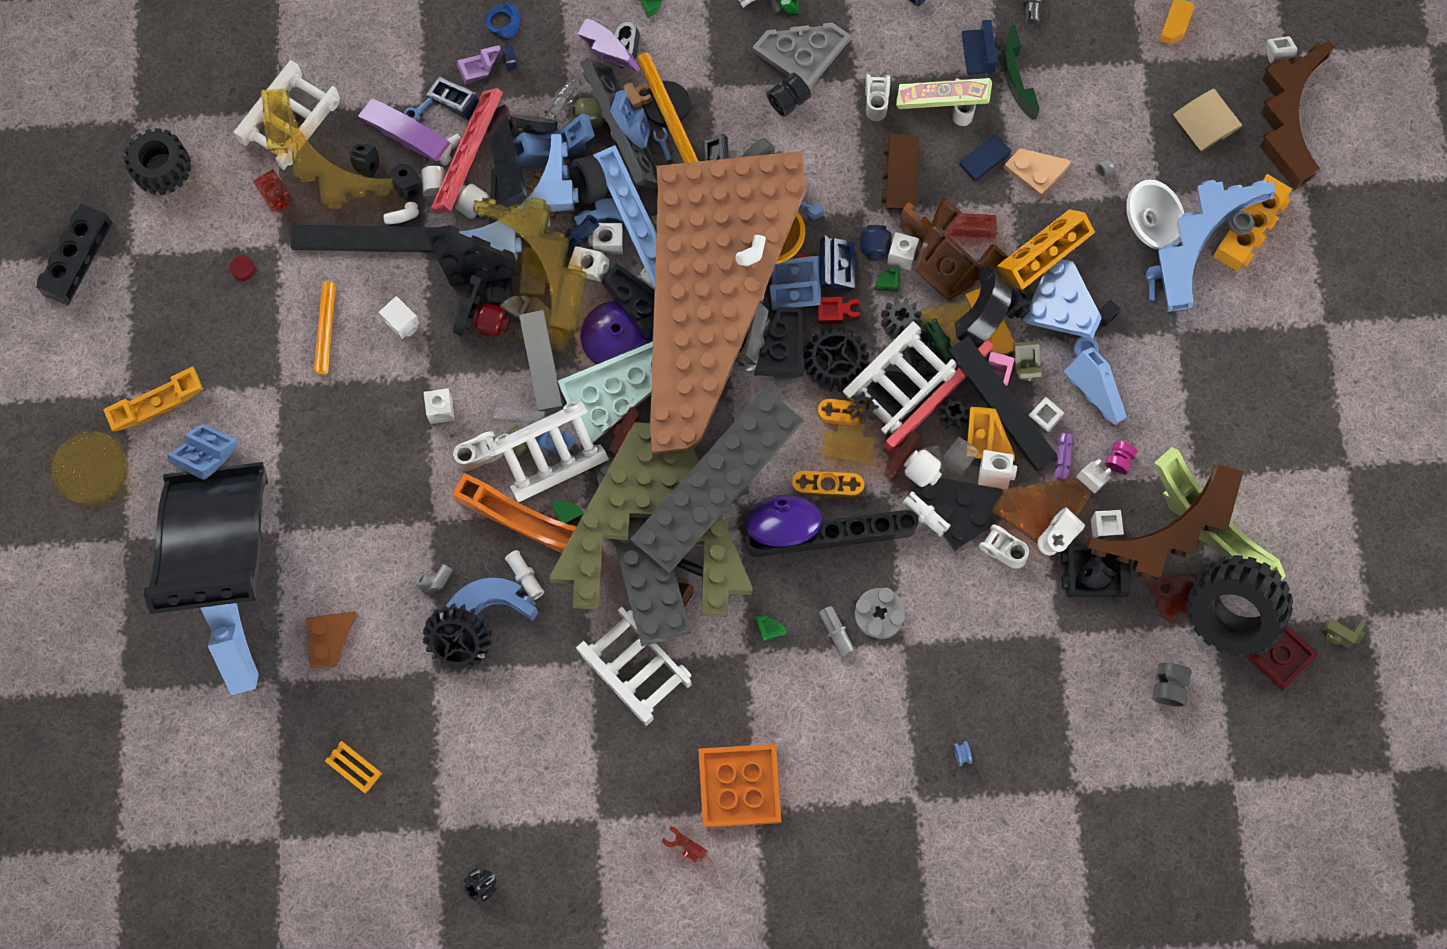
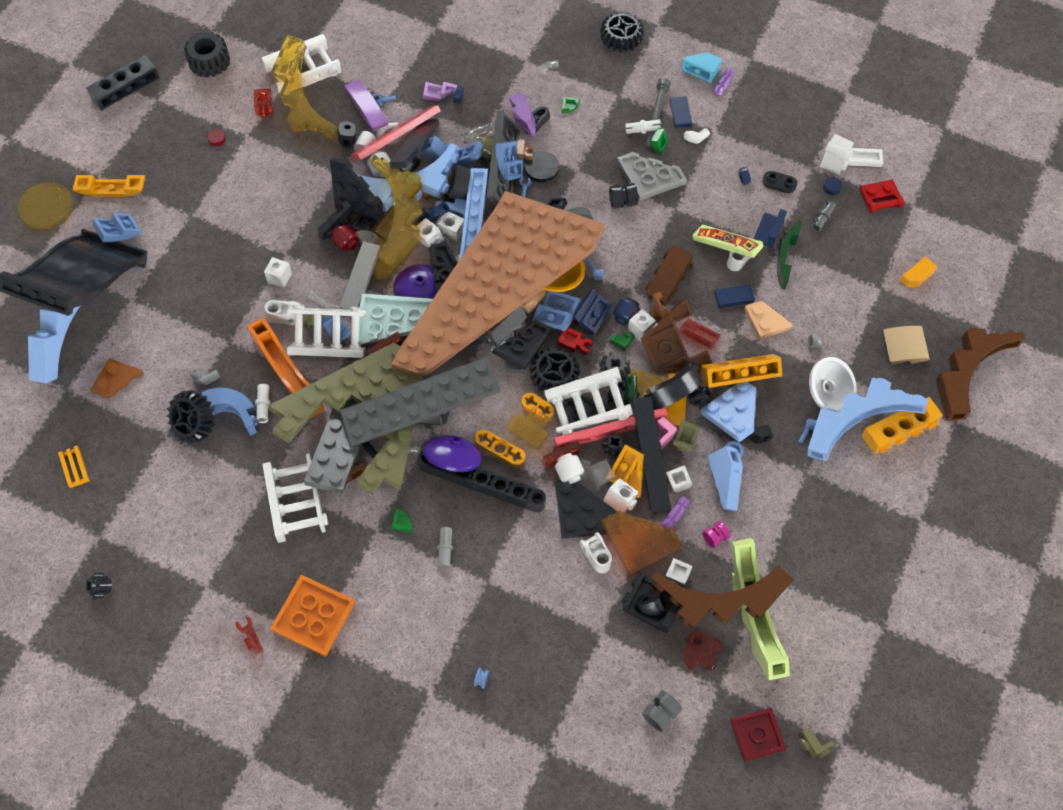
camera: 25 degrees right, 10 degrees down
(324, 328) = (241, 194): light orange axle -> none
(360, 238) = (293, 152): black tile -> none
(364, 159) = (331, 110): black piece -> none
(399, 318) = (289, 209): white brick -> none
(410, 212) = (330, 152): white arm -> none
(464, 107) = (411, 107): dark blue slope -> none
(512, 28) = (469, 81): blue piece -> none
(534, 122) = (447, 136): black tile -> none
(567, 511) = (314, 375): green tile -> none
(666, 108) = (538, 164): light orange axle -> none
(753, 254) = (532, 269): white arm -> none
(856, 405) = (554, 403): black gear -> none
(875, 626) = (474, 558): light grey plate -> none
(877, 93) = (682, 224): white piece -> none
(926, 514) = (554, 500): white pin -> none
(1060, 532) = (642, 560): white piece -> none
(1094, 476) = (688, 537): white tile -> none
(1241, 223) = (891, 418): flat silver plate -> none
(1248, 580) = (760, 667): black tyre -> none
(1281, 48) = (987, 322): white brick -> none

